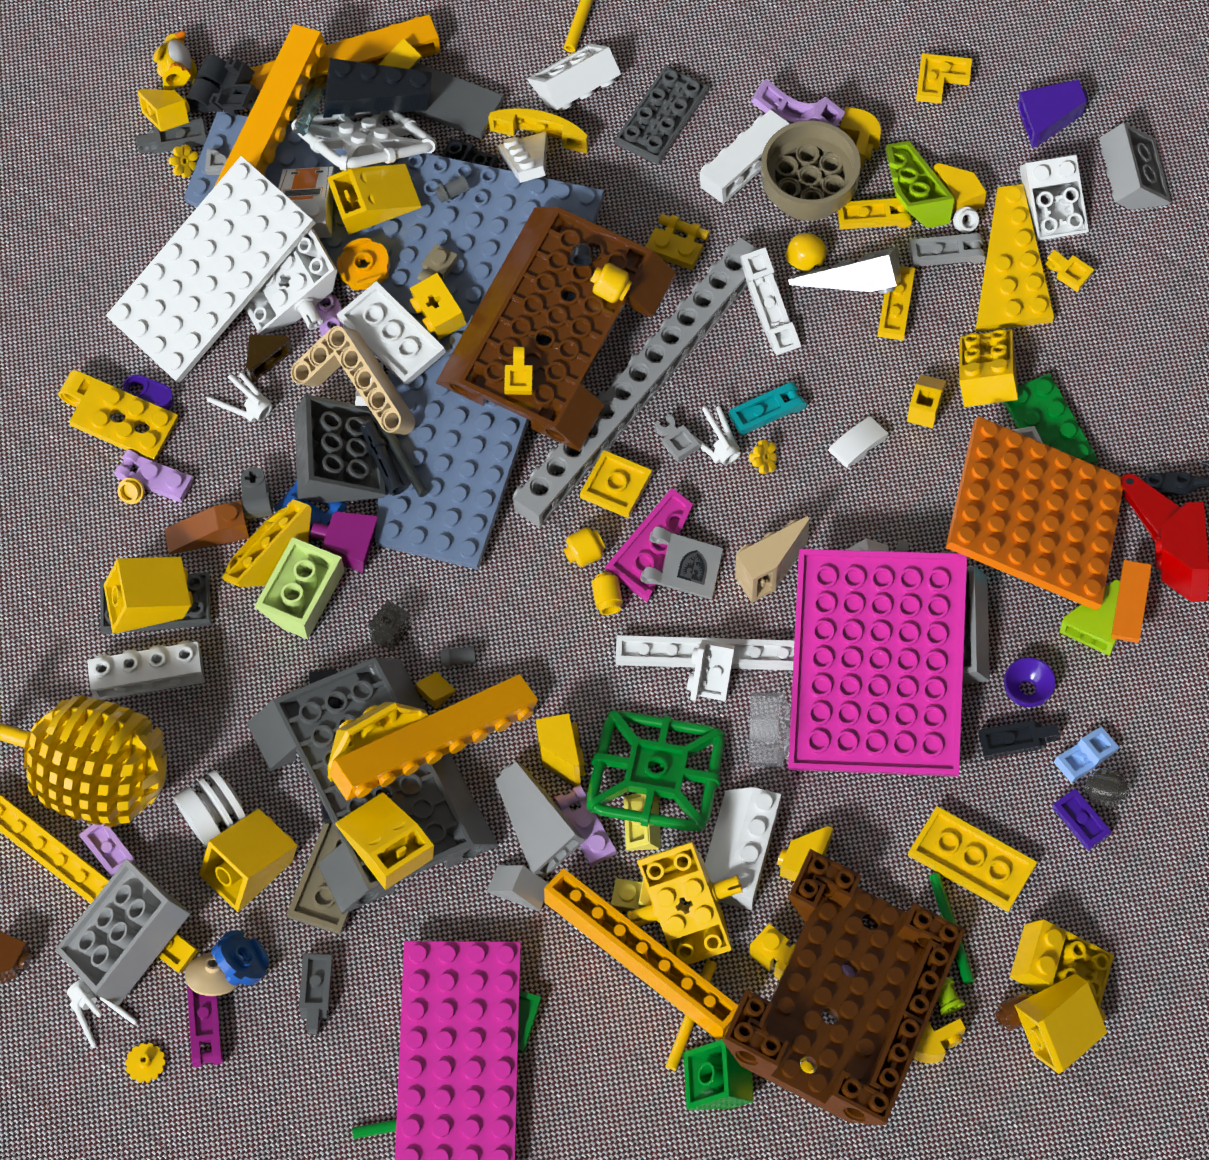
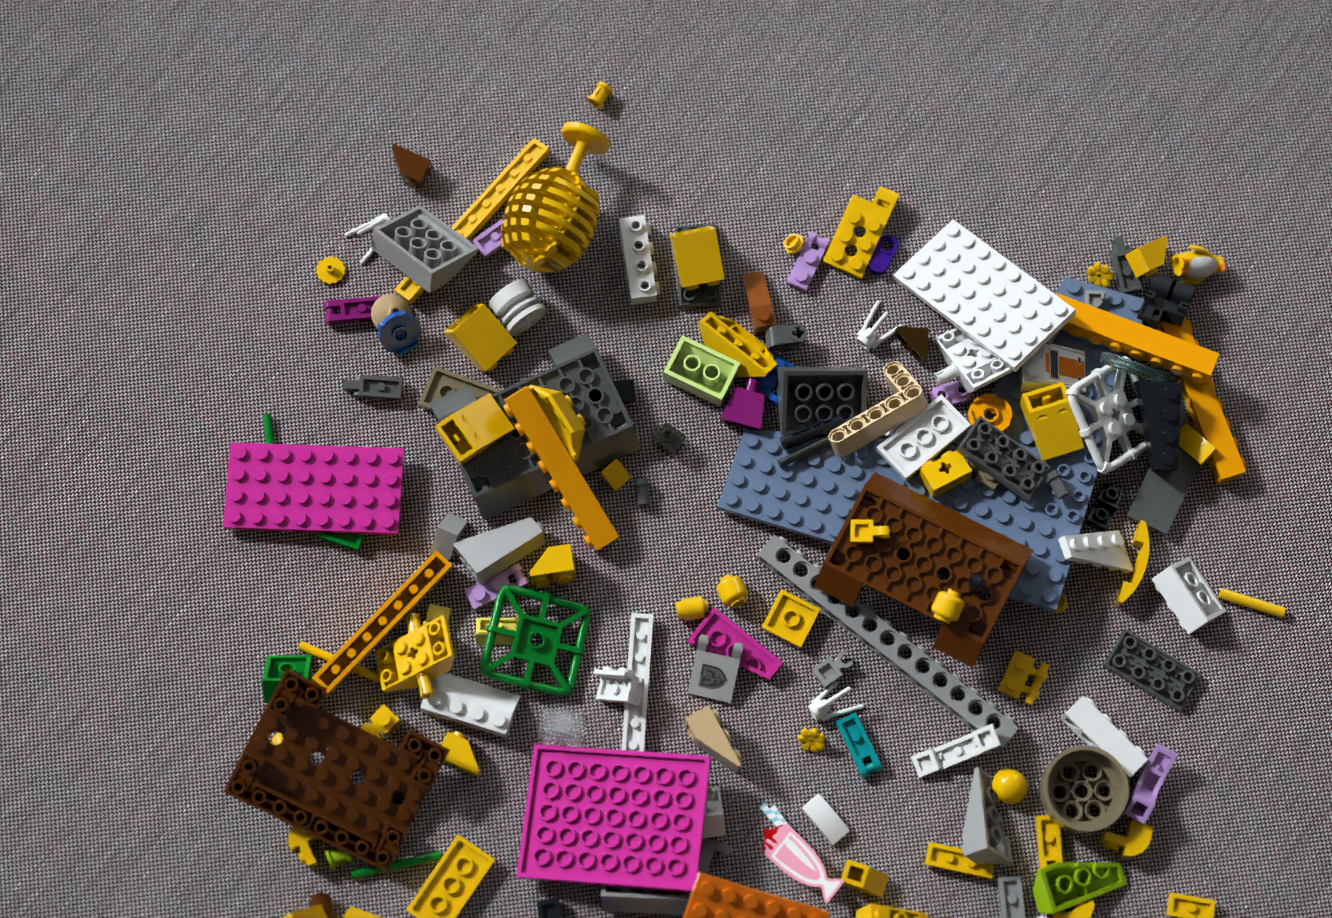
camera: 85 degrees right, 10 degrees up
(420, 243) = (1003, 458): none -> dark grey tile
(905, 470) = (795, 856): none -> sticker

